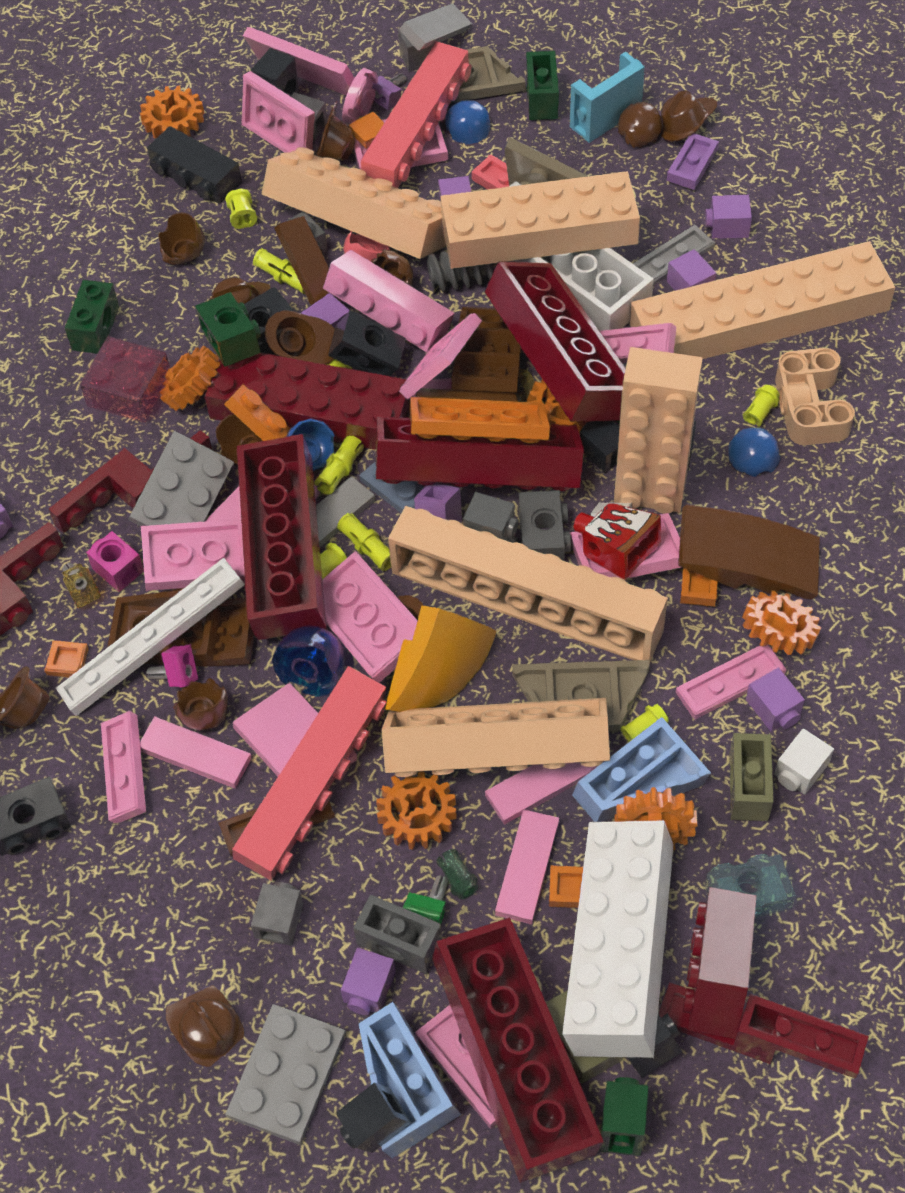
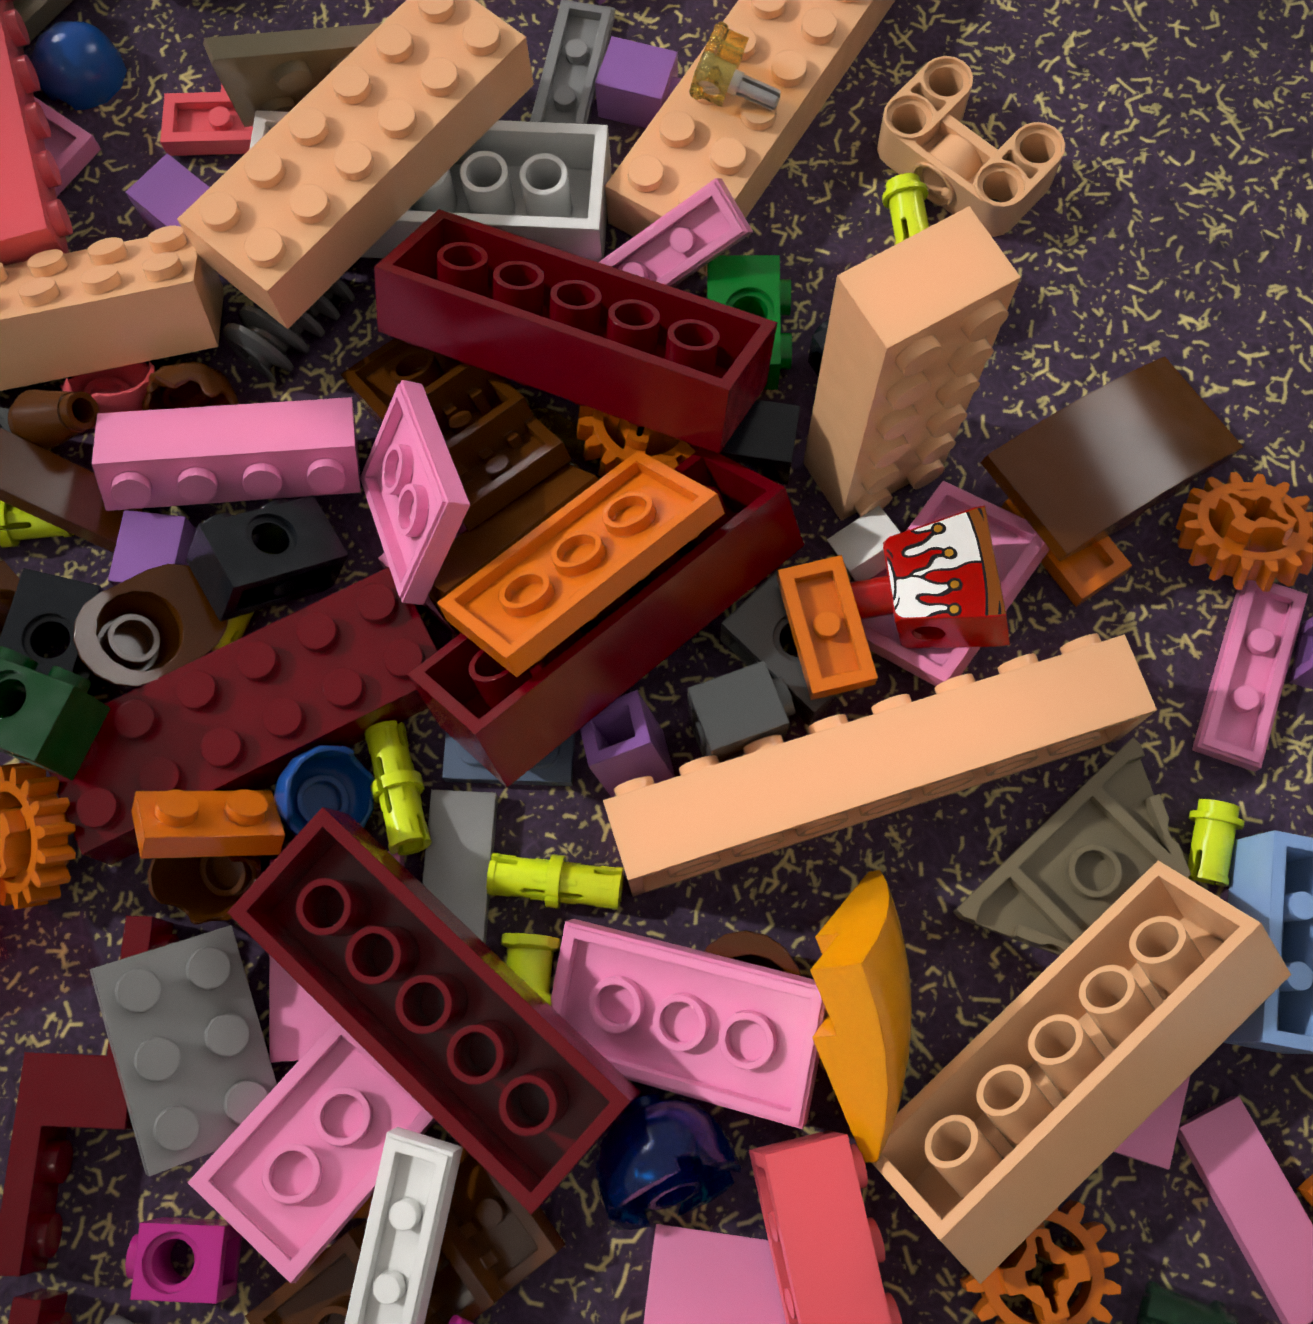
camera: 40 degrees left, 15 degrees up
(333, 240) = (51, 416): none -> reddish brown cone
(555, 518) = (826, 627): none -> orange plate
(718, 286) = (719, 73): none -> clear yellow piece

